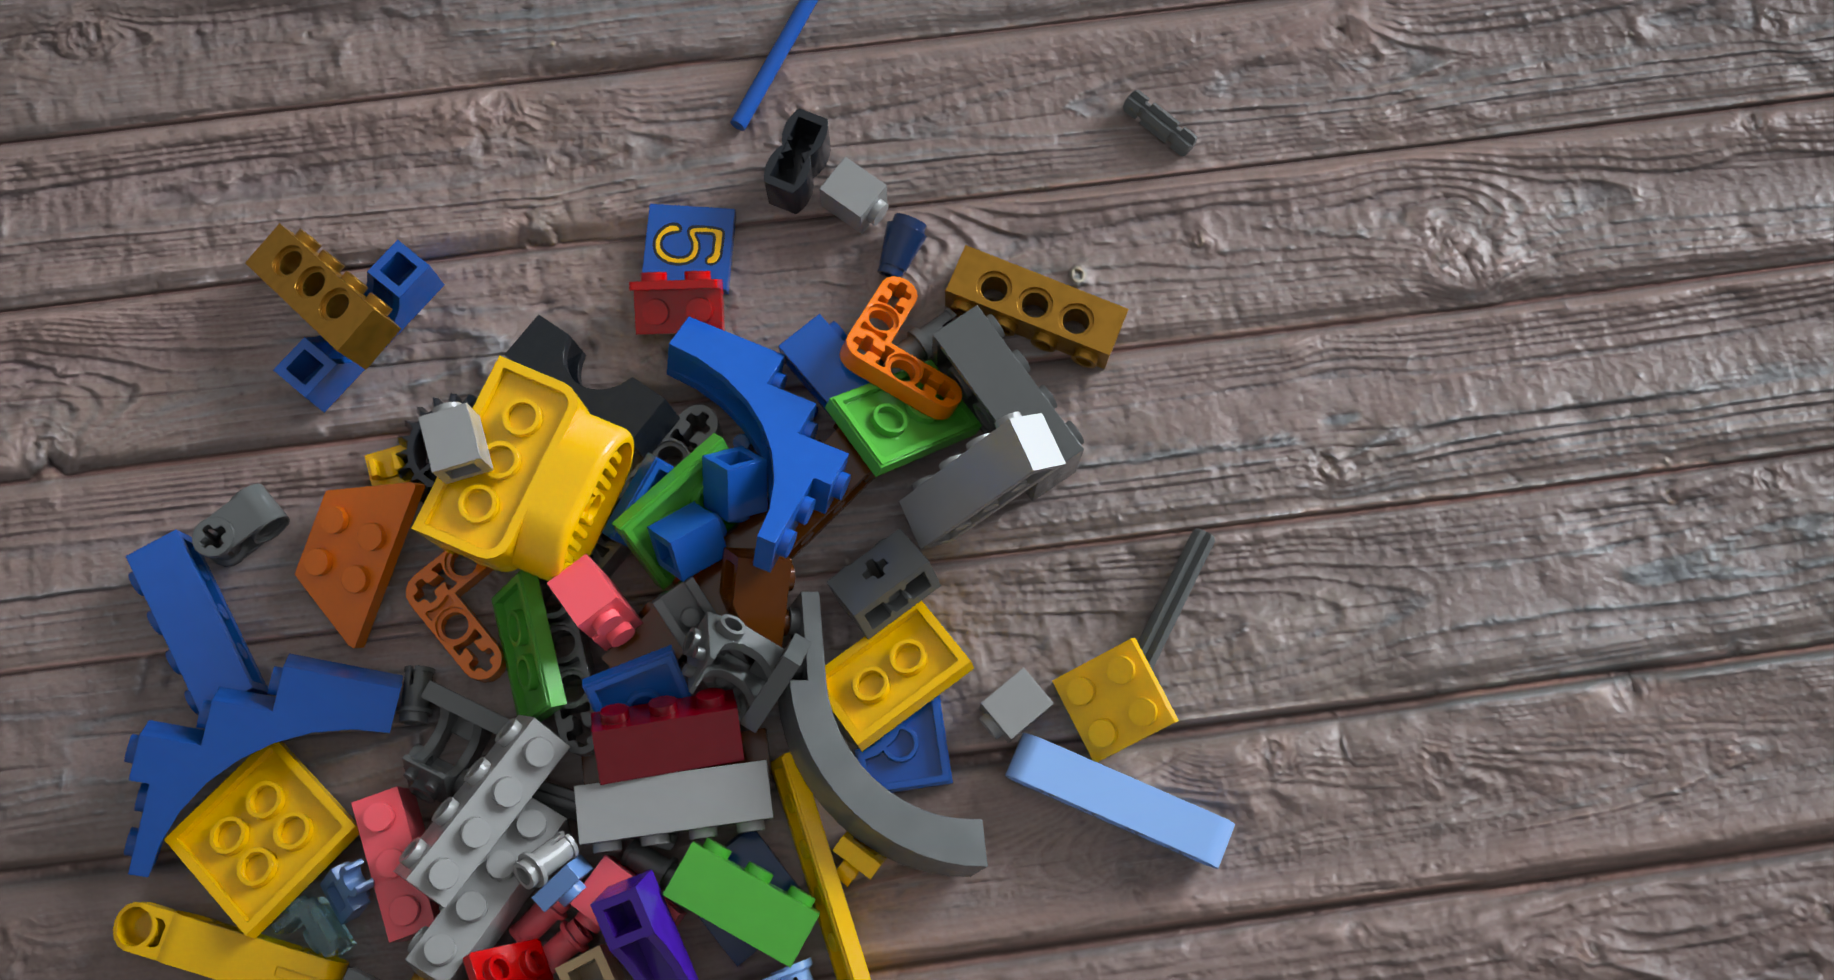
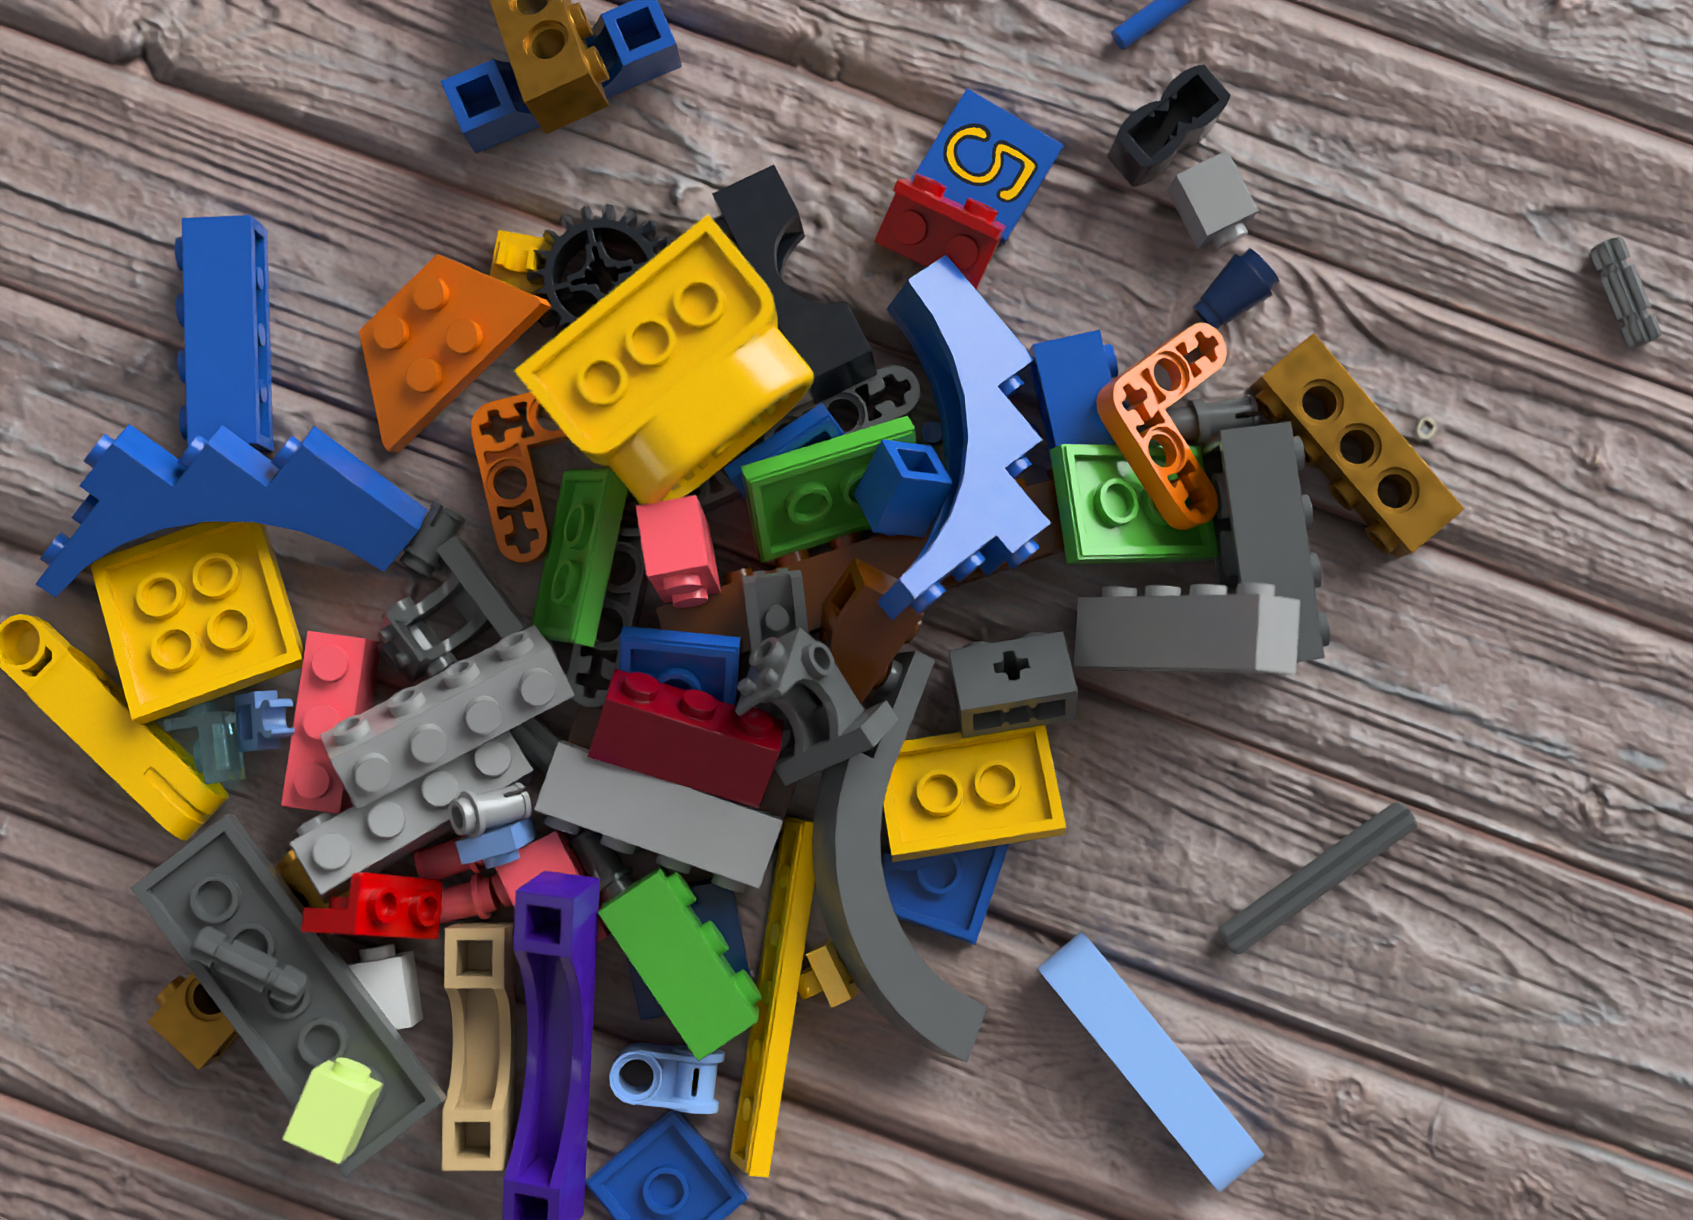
camera: 25 degrees right, 10 degrees up
(242, 525) = (331, 241): dark grey piece -> none
(455, 442) = (610, 297): light grey brick -> none
(688, 540) = (817, 528): blue brick -> none
(1014, 706) = (1087, 898): light grey brick -> none
(1115, 700) = (1204, 950): yellow plate -> none

